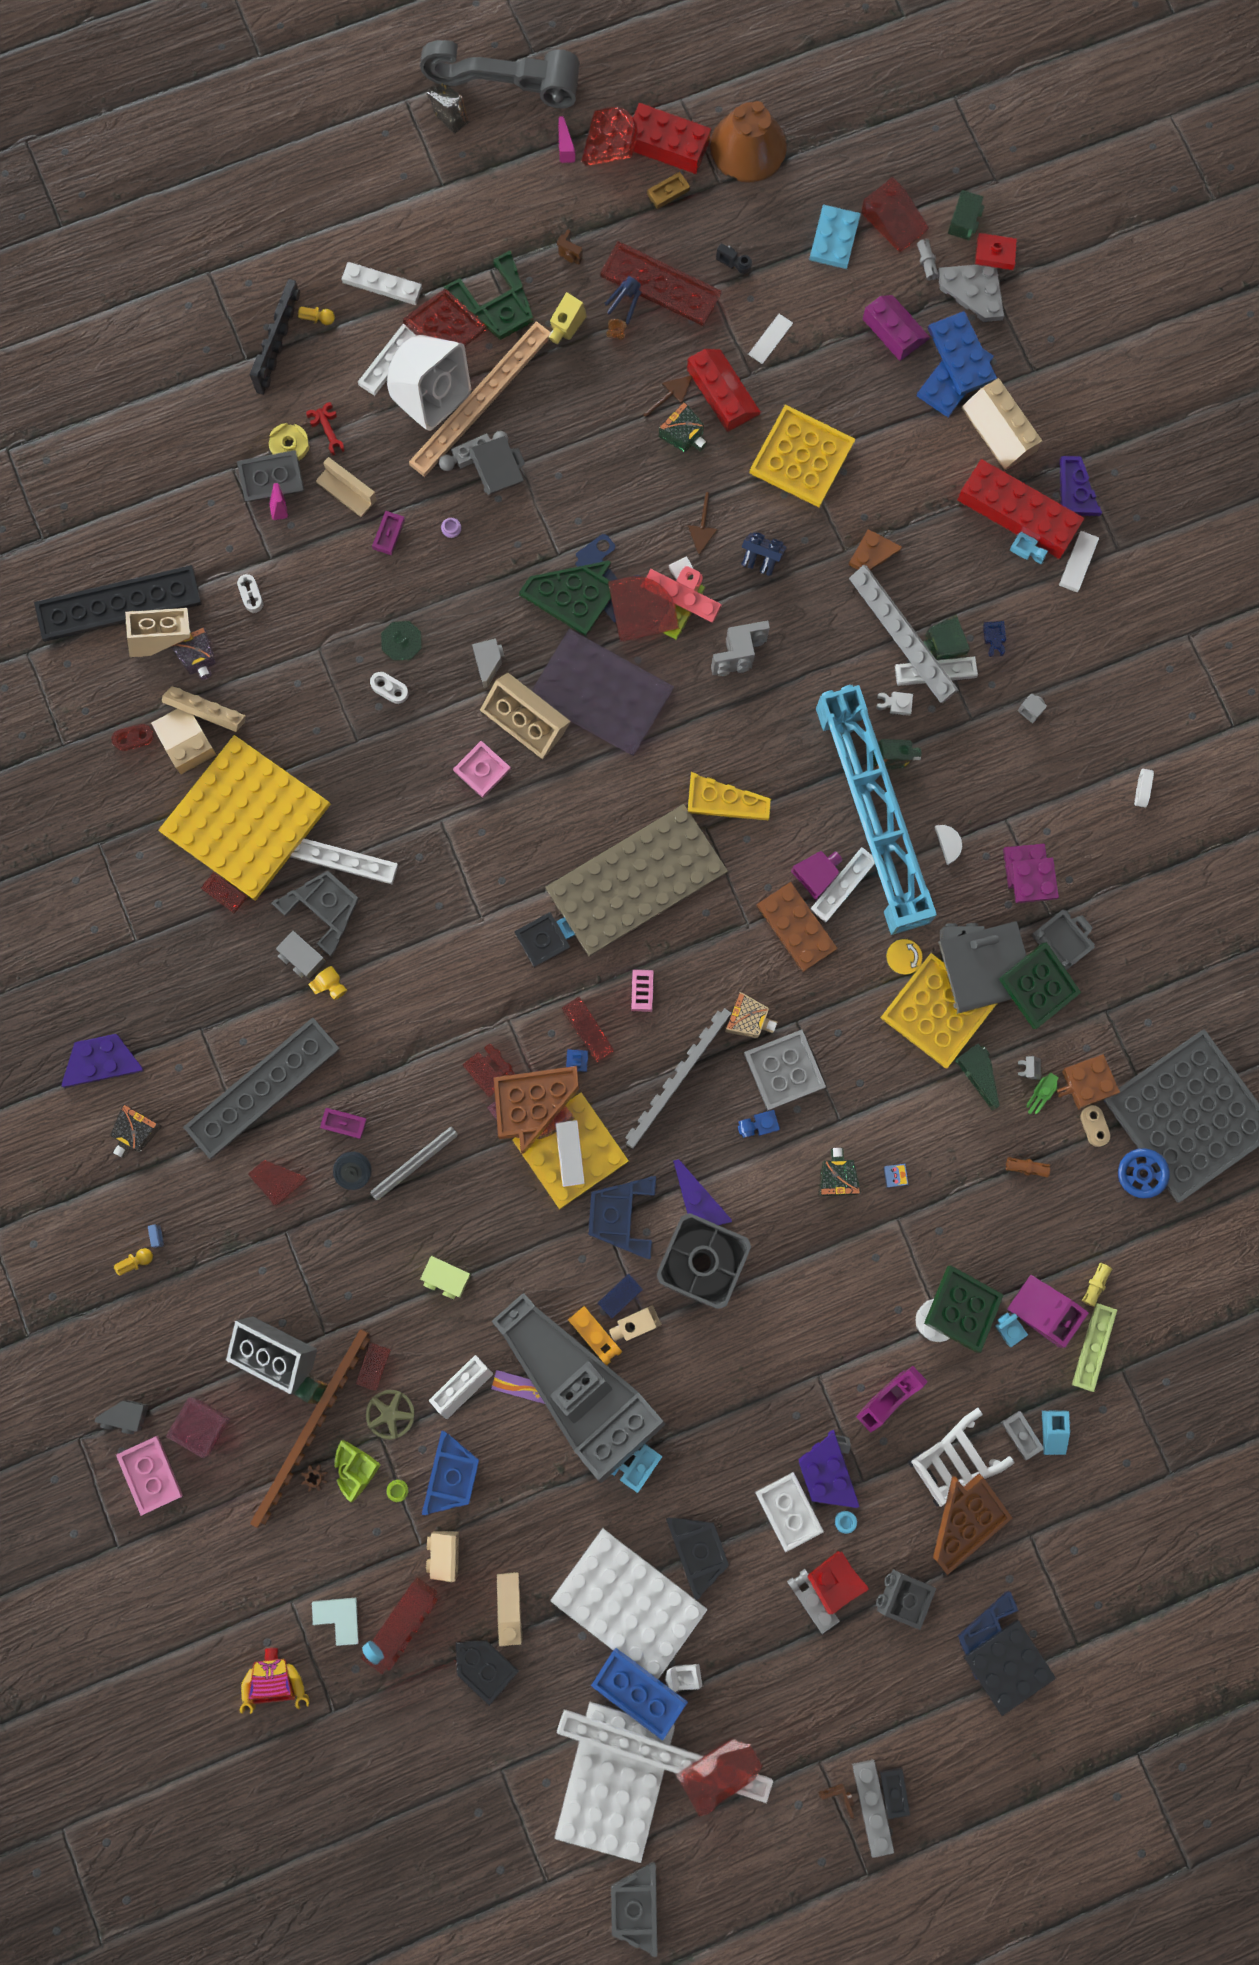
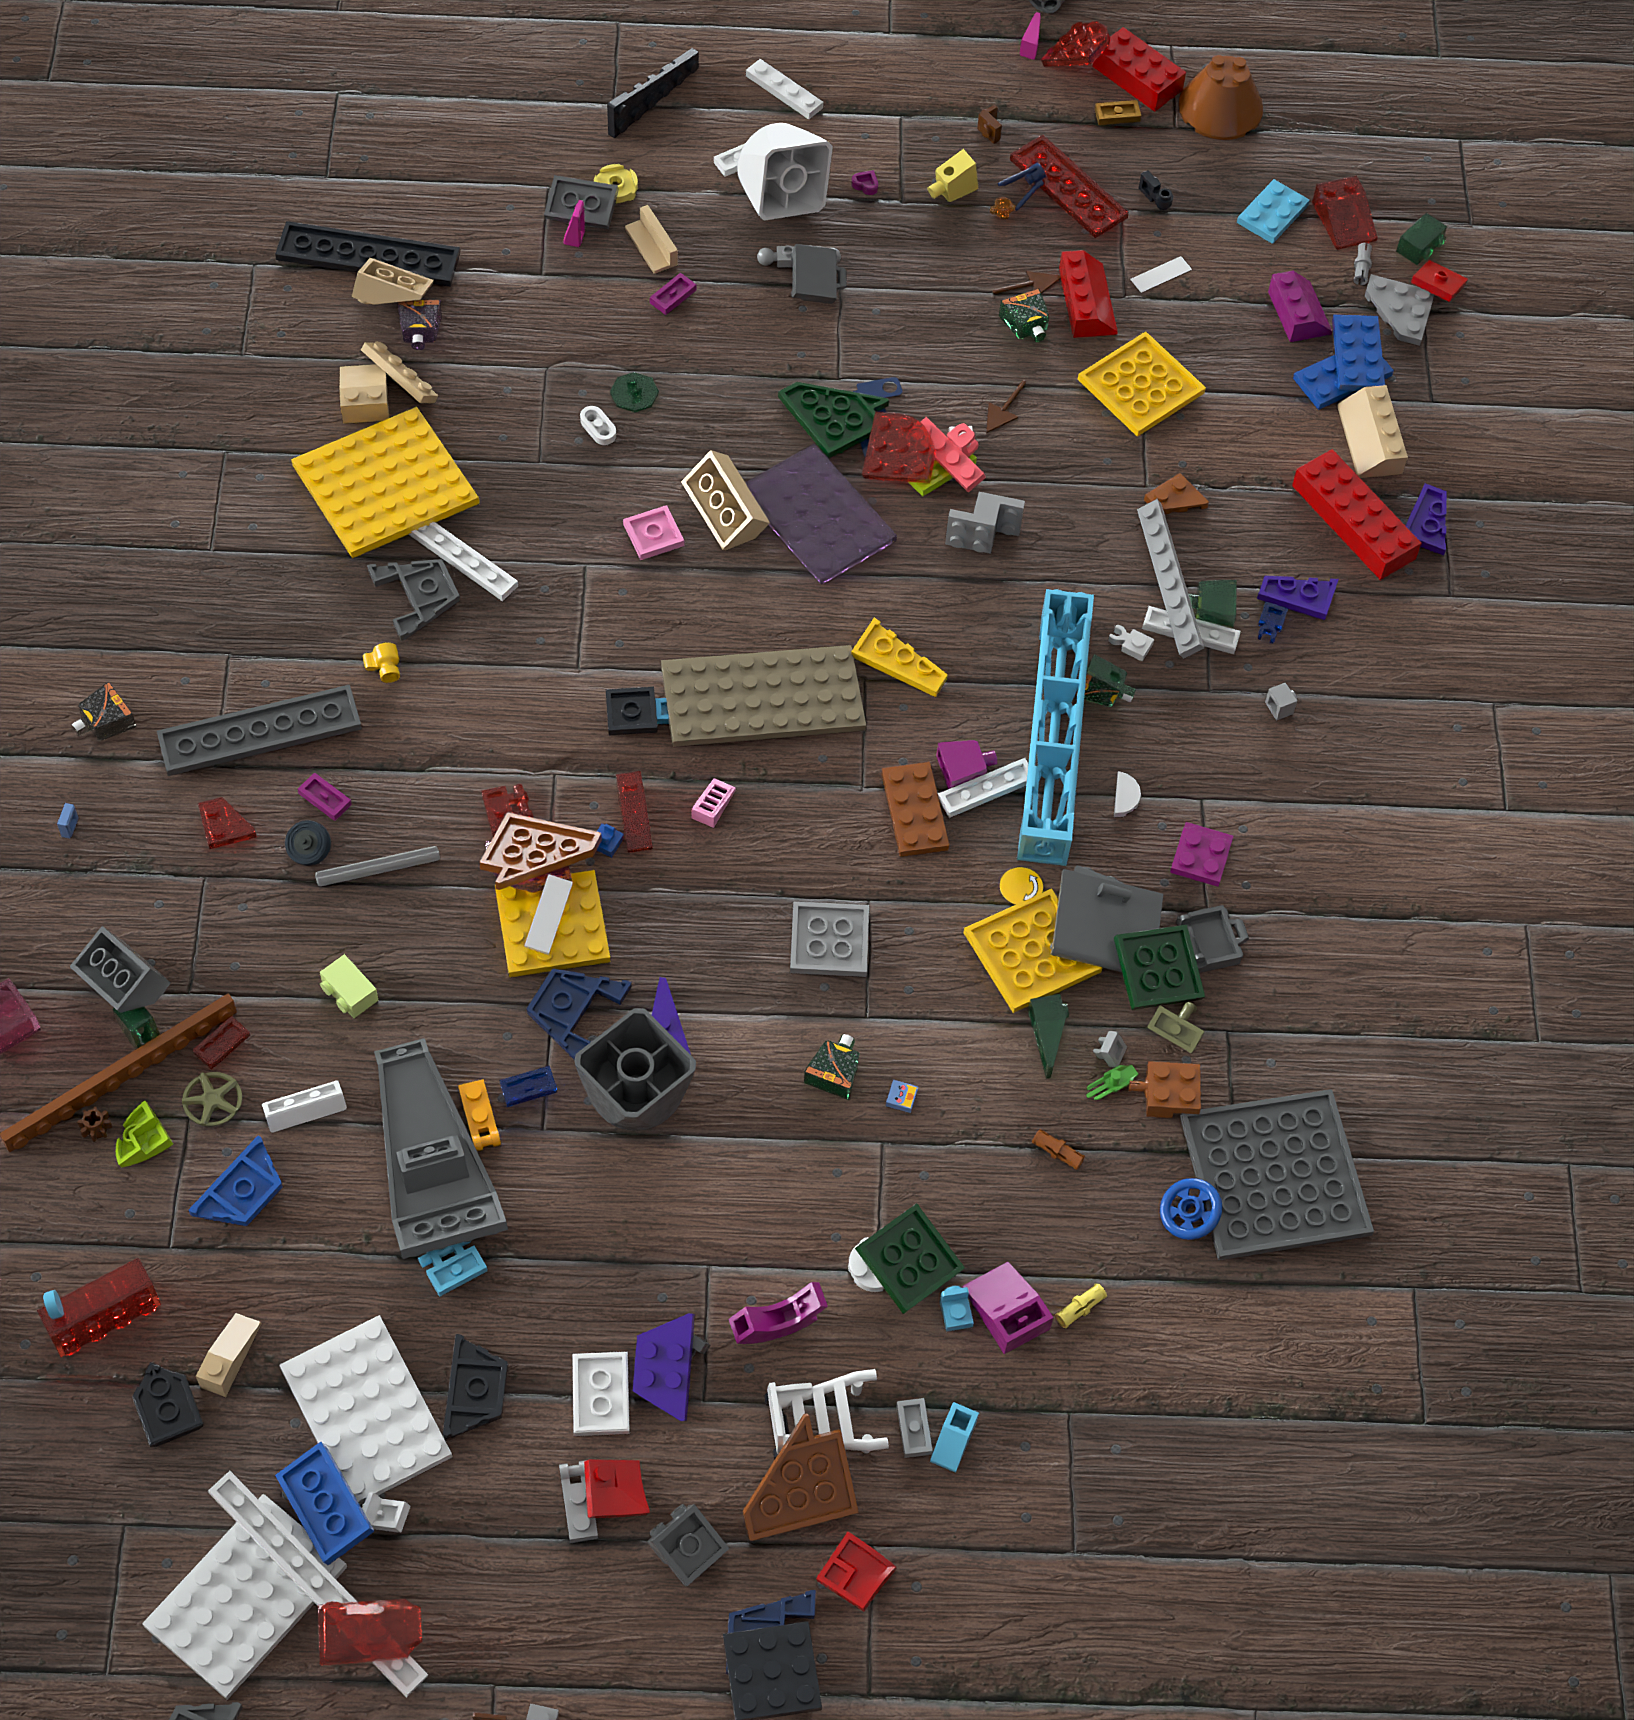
camera: 25 degrees right, 20 degrees down
(99, 1060) = (107, 640): dark purple wing -> none
(133, 738) = (315, 370): clear red plate -> none
(143, 1257) = (43, 838): yellow axle -> none
(223, 892) = (324, 539): clear red plate -> none
(247, 594) = (508, 294): white beam -> none
(300, 954) = (369, 623): light grey brick -> none
(321, 415) = (663, 175): red bar -> none
(325, 316) = (712, 96): yellow axle -> none
(342, 1613) = (41, 1276): light aqua tile -> none
(397, 1490) = (176, 1178): lime plate -> none
(444, 1555) = (190, 1261): tan slope -> none
(445, 319) = (839, 133): clear red plate -> none
(451, 527) = (739, 312): lavender plate -> none
(480, 399) = (829, 216): light nougat plate -> none
(488, 659) = (714, 436): light grey slope -> none
(492, 350) = (866, 182): none -> magenta tile
(504, 313) = (892, 154): dark green wing -> none
(515, 1386) = (364, 1131): medium lavender sticker -> none
(643, 1320) = (531, 1117): tan torso -> none
(672, 1084) = (701, 901): light grey plate -> none
(749, 1018) = (815, 872): torso -> none
(758, 544) = (1064, 450): dark blue plate -> none
(764, 1123) = (780, 983): blue plate -> none
(845, 1522) = (660, 1433): medium azure tile -> none
(1010, 602) = (1303, 596): none -> dark purple wing
(1026, 546) = (1345, 551): medium azure plate -> none
(1031, 1563) = (856, 1571): none -> red plate
(1072, 1028) = (1176, 1027): none -> olive plate
(1079, 561) = (1400, 588): white tile -> none
(1094, 1347) = (1046, 1372): yellowish green tile -> none
(1096, 1125) = (1158, 1139): tan plate -> none
(1144, 788) = (1372, 825): white beam -> none

